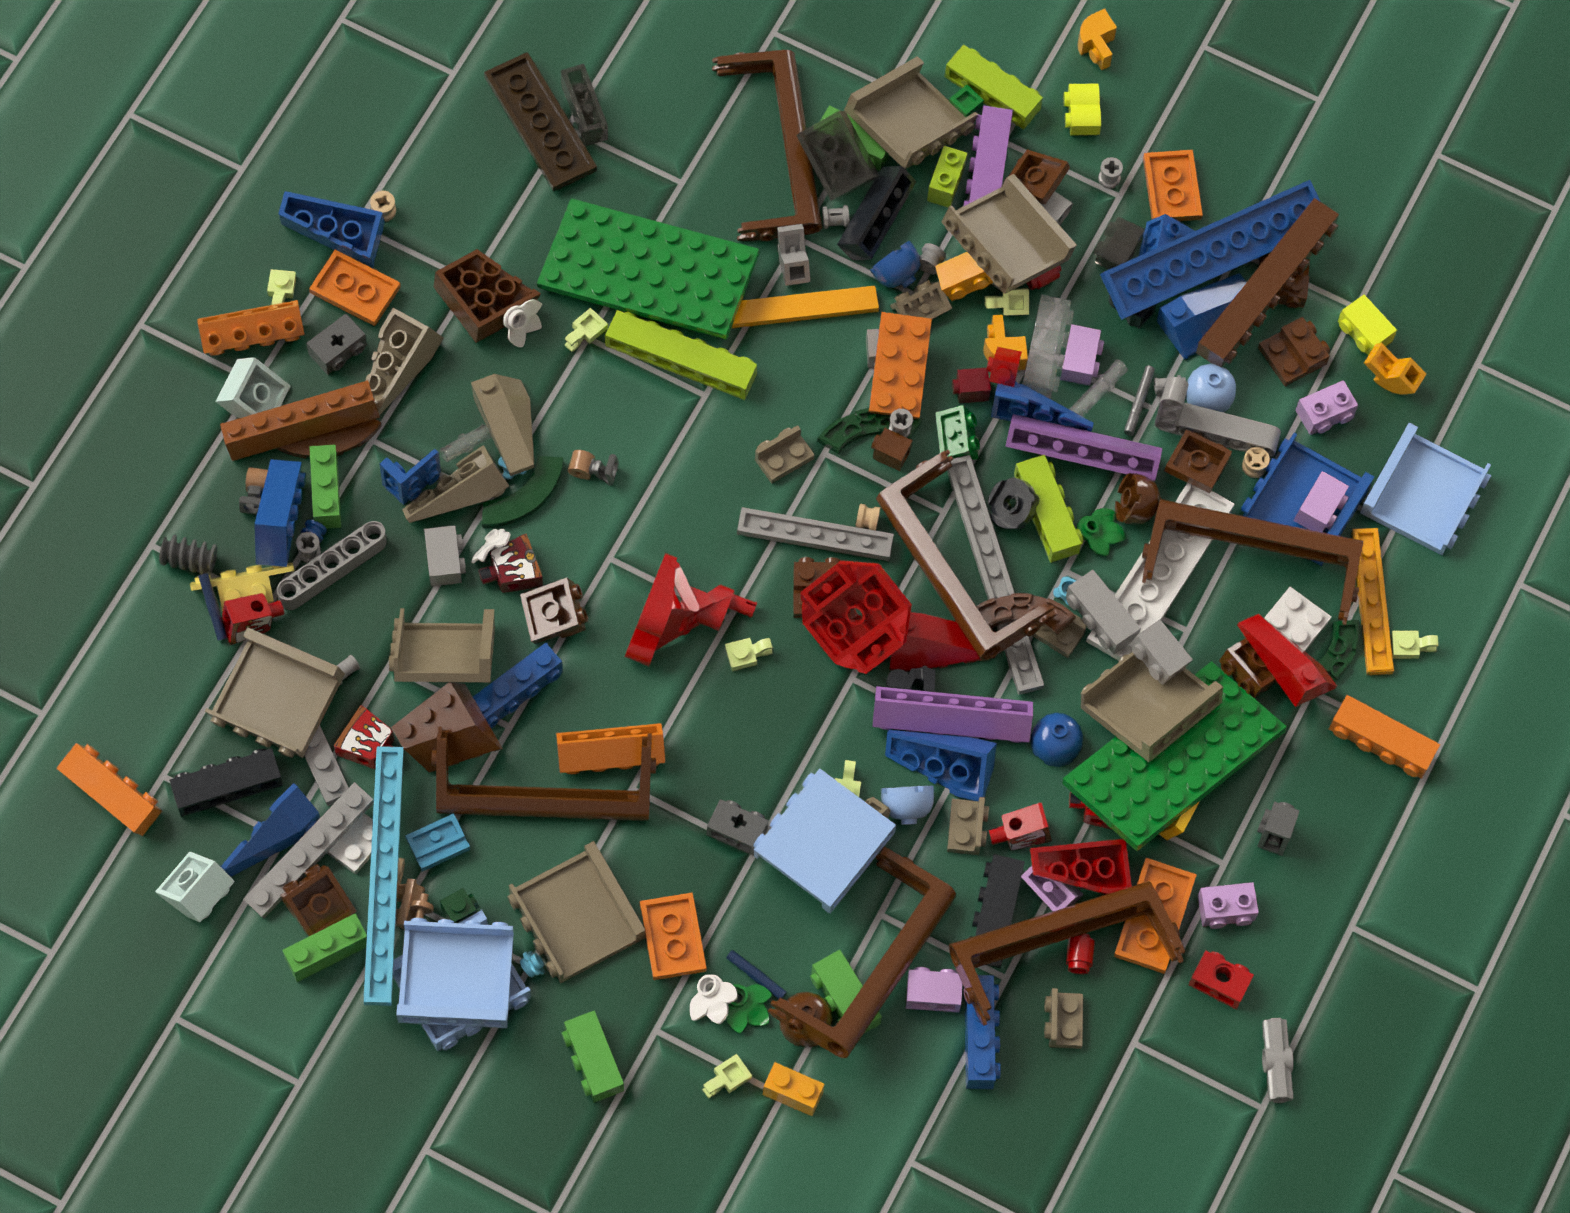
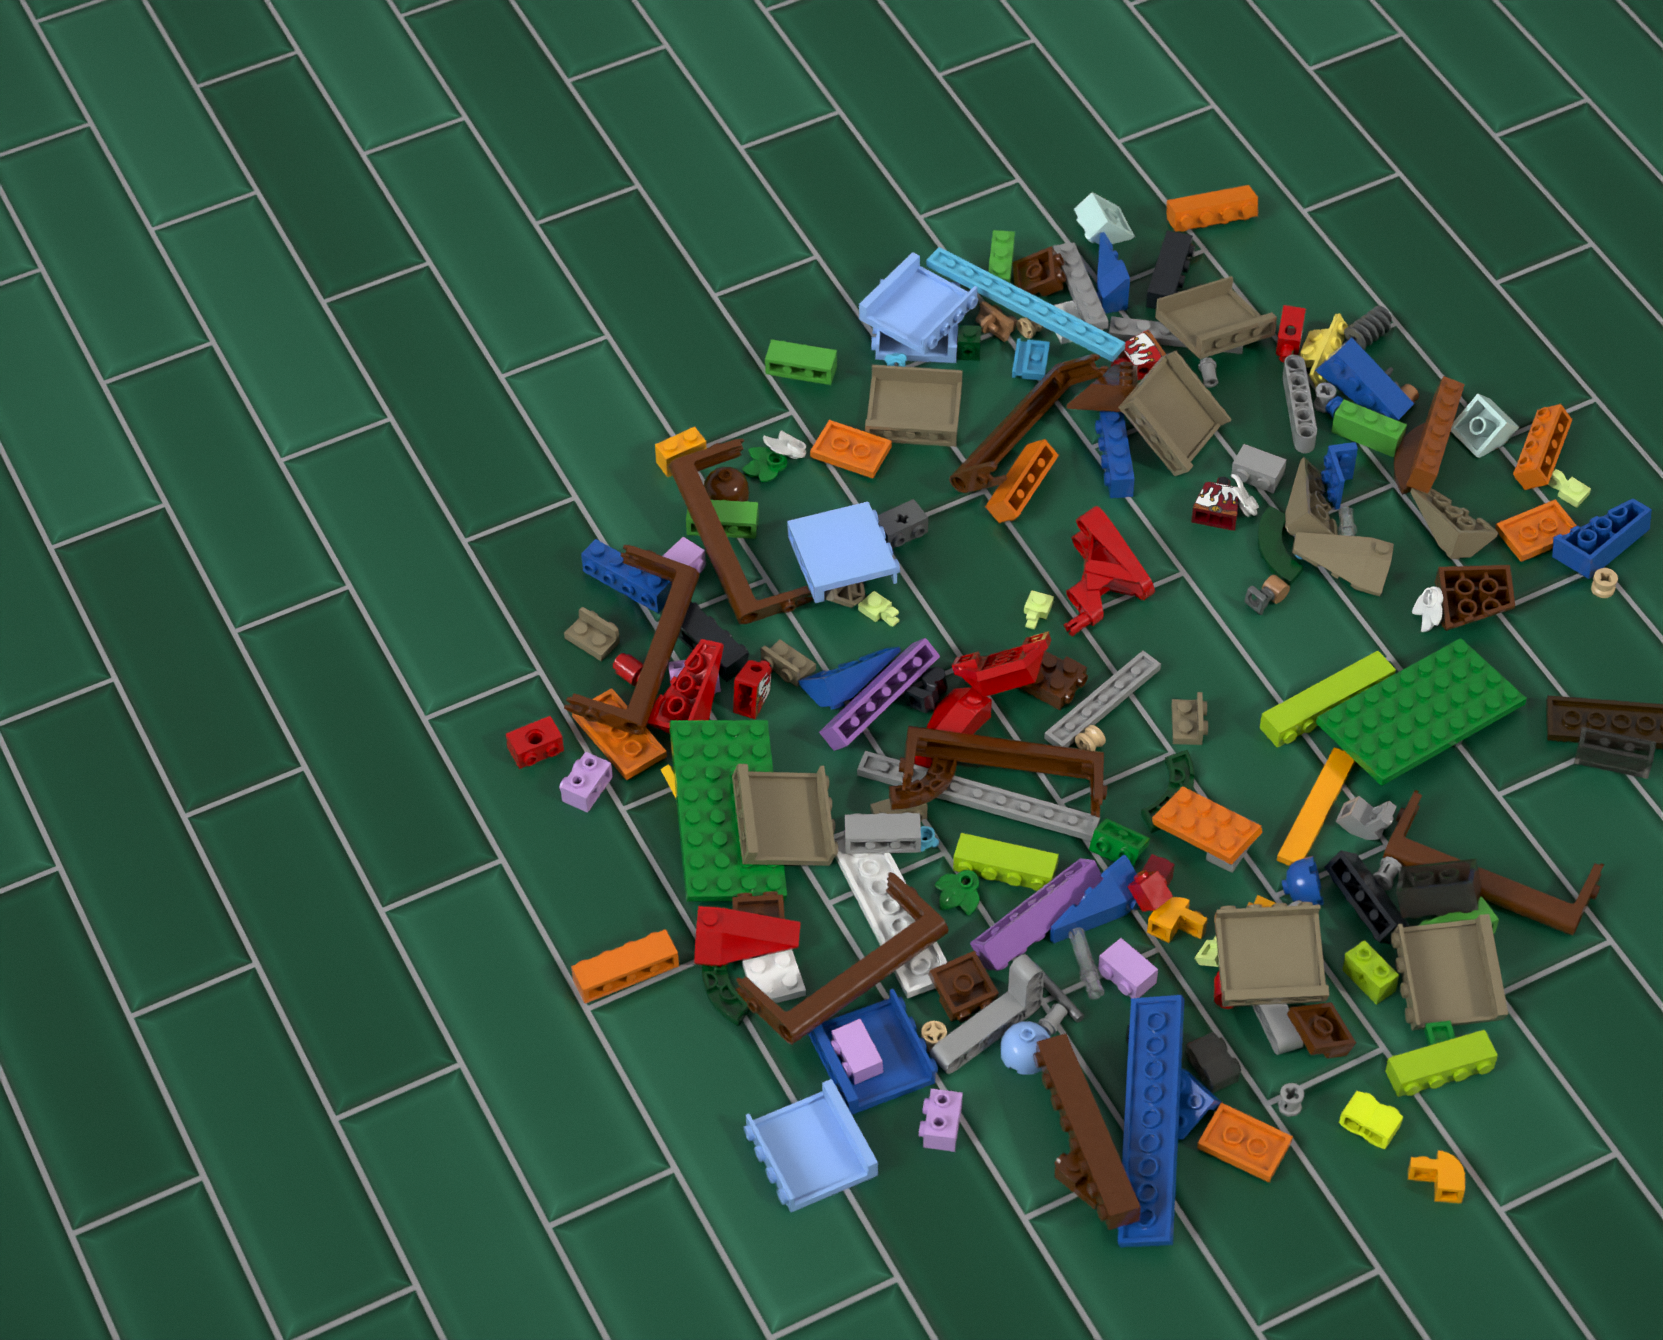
camera: 130 degrees right, 15 degrees down
(212, 606) = (1320, 320): dark blue piece -> none
(337, 344) = (1491, 494): dark grey brick -> none
(554, 610) = (1160, 508): plate -> none
(585, 327) = (1396, 653): yellowish green plate -> none
(729, 1074) = (723, 427): yellowish green plate -> none
(755, 974) = (782, 482): dark blue piece -> none
(891, 449) = (1138, 789): reddish brown brick -> none
(901, 417) = (1150, 799): light grey bush -> none
(908, 802) = (836, 629): light blue cylinder -> none
(926, 302) = (1260, 879): dark tan bracket -> none
(991, 152) = (1368, 1016): medium lavender brick -> none
(1025, 506) = (1022, 832): black plate -> none
(1046, 345) = (1175, 965): clear brick -> none
(1057, 739) = (807, 753): blue cylinder -> none
(1138, 499) = (962, 923): reddish brown cylinder -> none
(1160, 652) = (813, 837): light grey brick -> none
(1194, 313) = (1105, 1073): blue wedge -> none
(1277, 827) = (613, 840): dark grey brick -> none
(1277, 1060) = (446, 740): light grey piece -> none
(1295, 351) = (1014, 1135): reddish brown plate -> none
(1366, 324) = (996, 1203): neon yellow brick -> none
(1373, 604) = (747, 1046): light orange tile -> none
(1394, 374) = (936, 1192): light orange brick -> none
(1408, 644) = (687, 1045): yellowish green plate -> none

